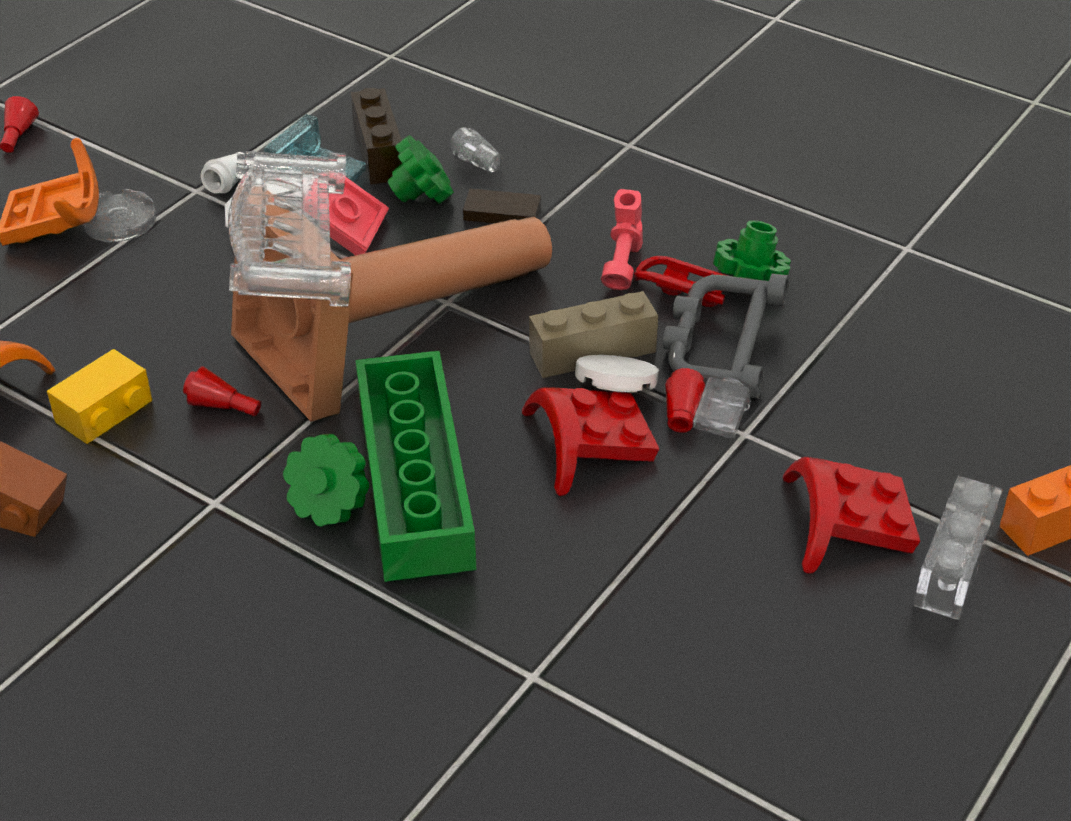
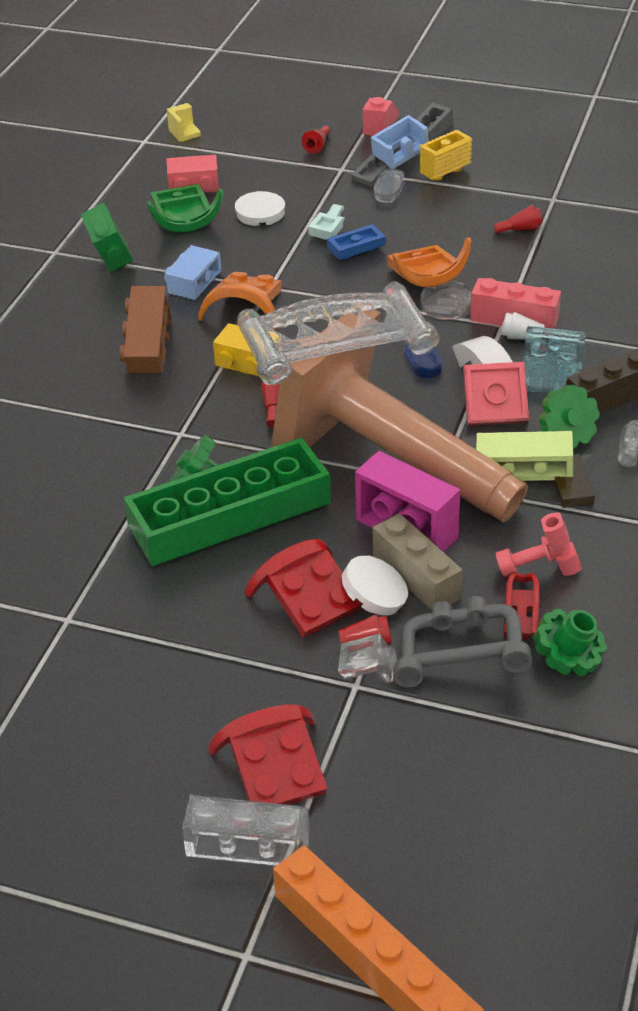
camera: 75 degrees right, 0 degrees up
(176, 167) = (495, 298): none -> coral brick
(206, 258) = (424, 365): none -> clear blue tile
(466, 204) = (530, 454): none -> yellowish green brick
(492, 311) = (393, 487): none -> dark pink brick

